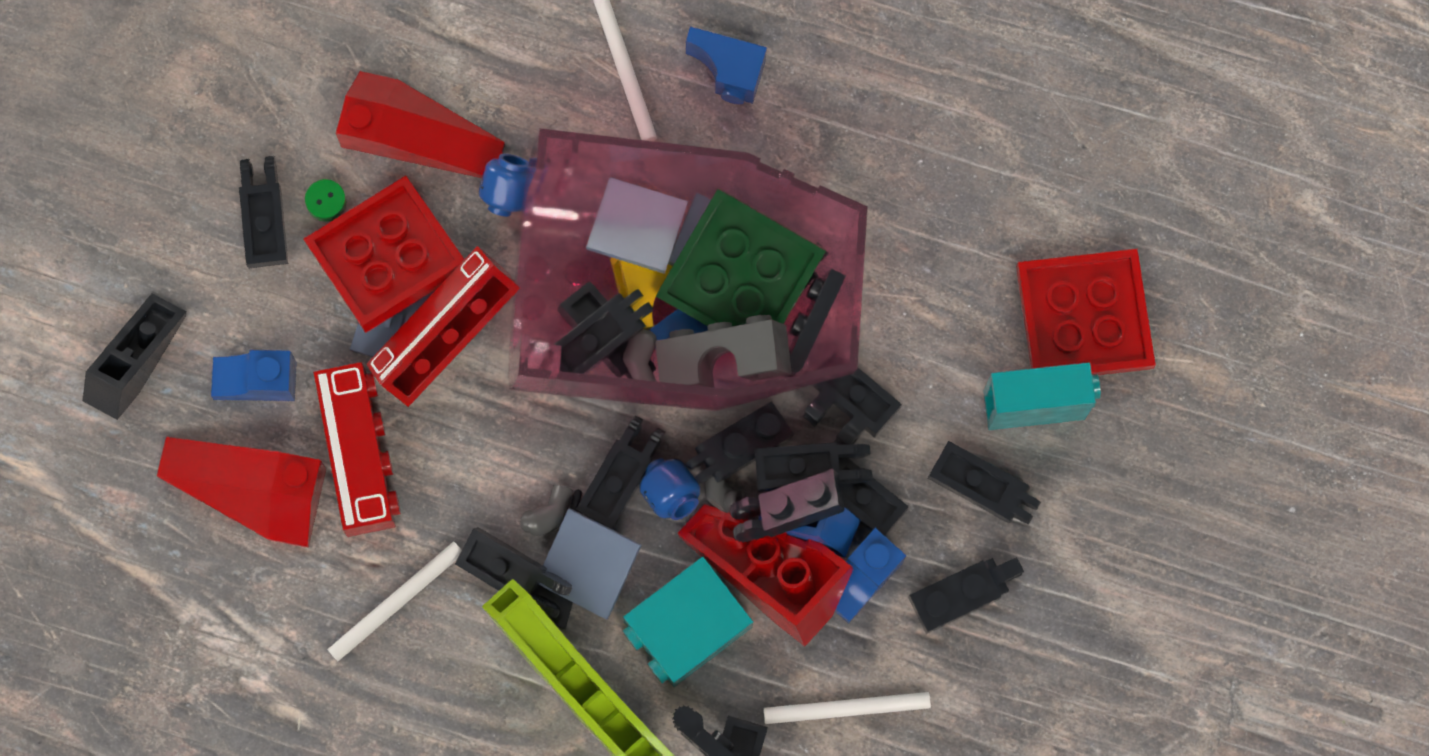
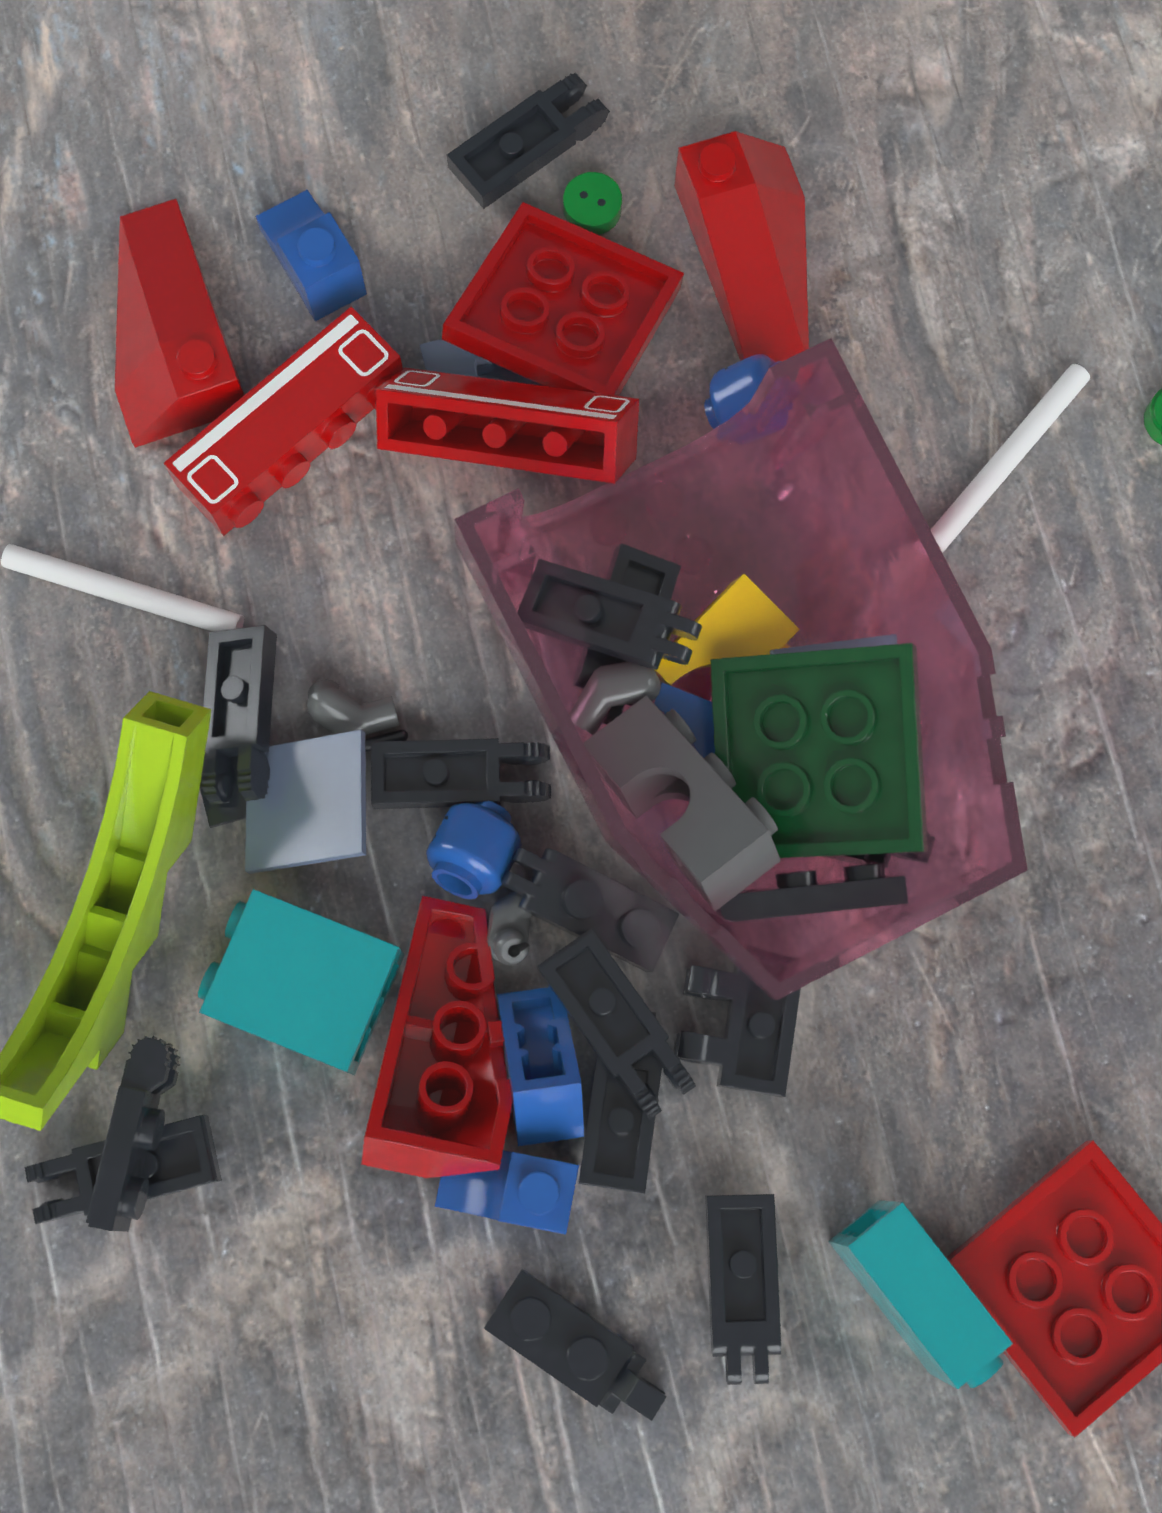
camera: 60 degrees right, 0 degrees up
(131, 356) = (246, 95): black slope -> none
(637, 225) = (795, 579): piece -> none
(733, 63) = (1111, 588): blue arch -> none
(789, 507) = (537, 1027): black hinge -> none
(846, 708) = (313, 1277): white bar -> none

